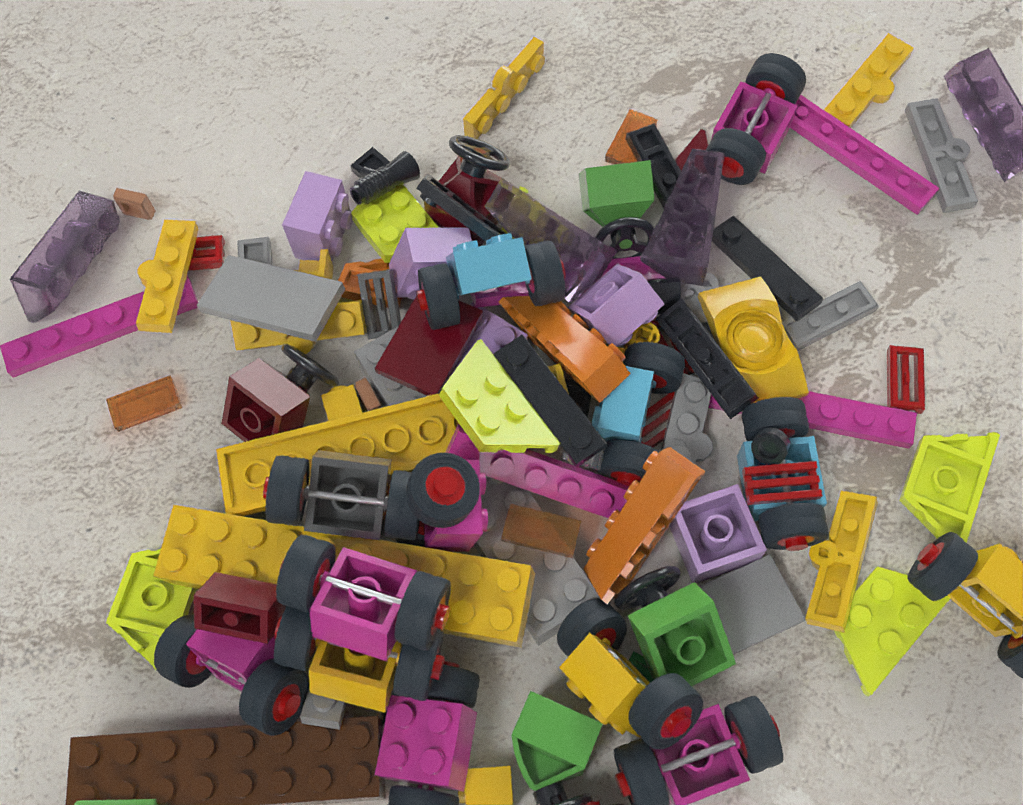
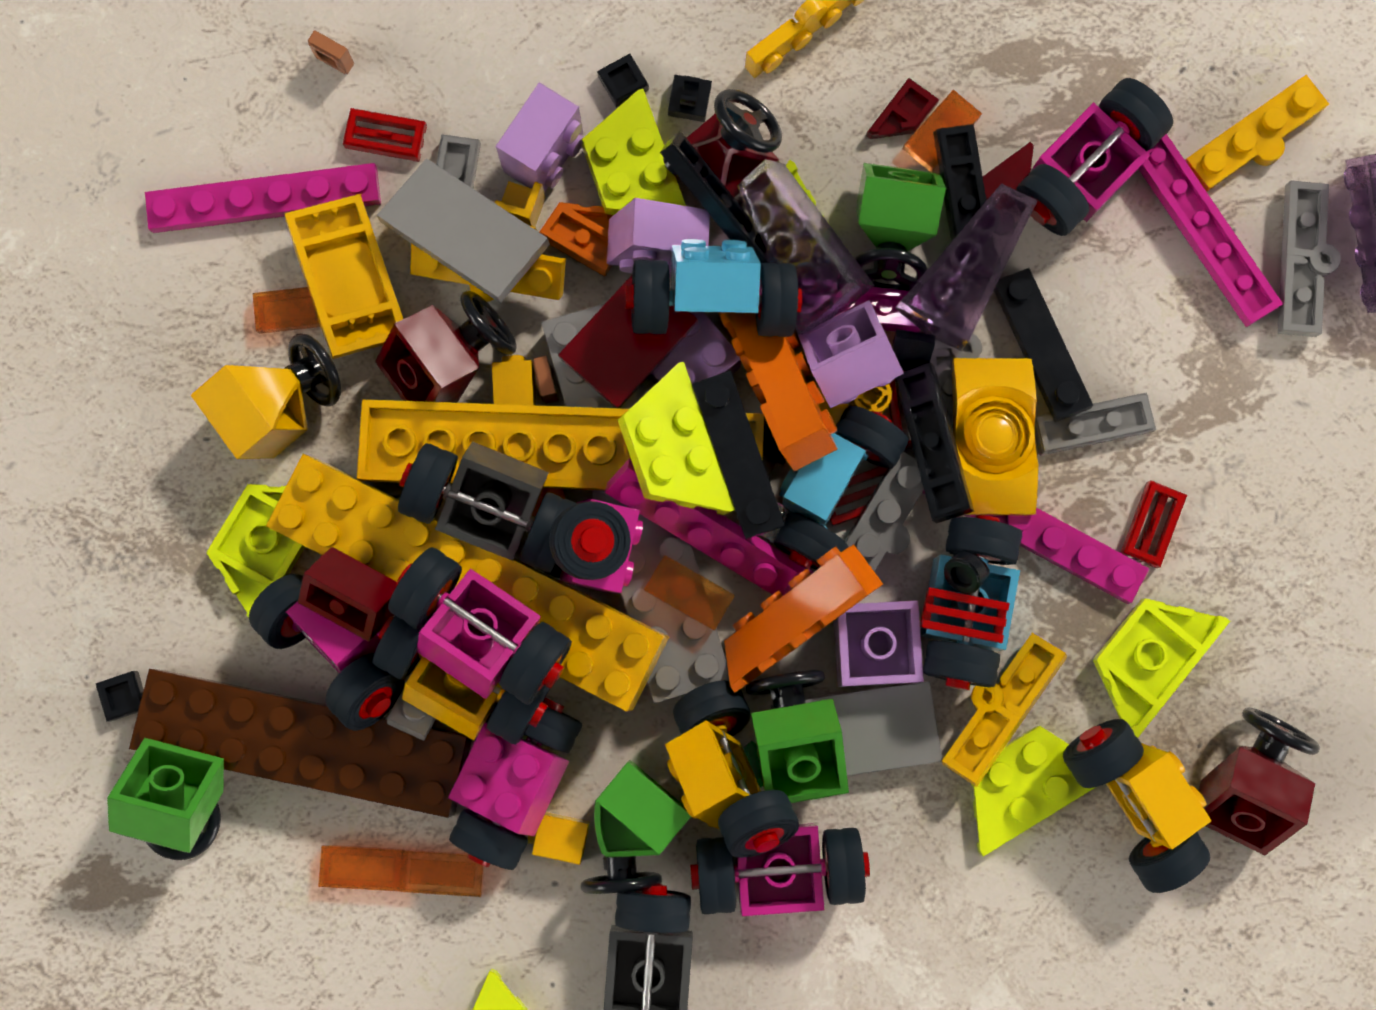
camera: 10 degrees right, 15 degrees up
(49, 776) = (120, 695): none -> black tile
(64, 254) = (240, 99): clear purple wedge -> none
(131, 479) = (263, 407): none -> yellow piece
(166, 276) = (350, 161): yellow hinge -> none
(182, 367) = (344, 274): none -> yellow slope
(363, 279) = (574, 235): dark grey tile -> none
(384, 179) = (630, 109): black piece -> none
(429, 163) = (689, 98): none -> black tile
(597, 134) = (904, 112): none -> dark red tile

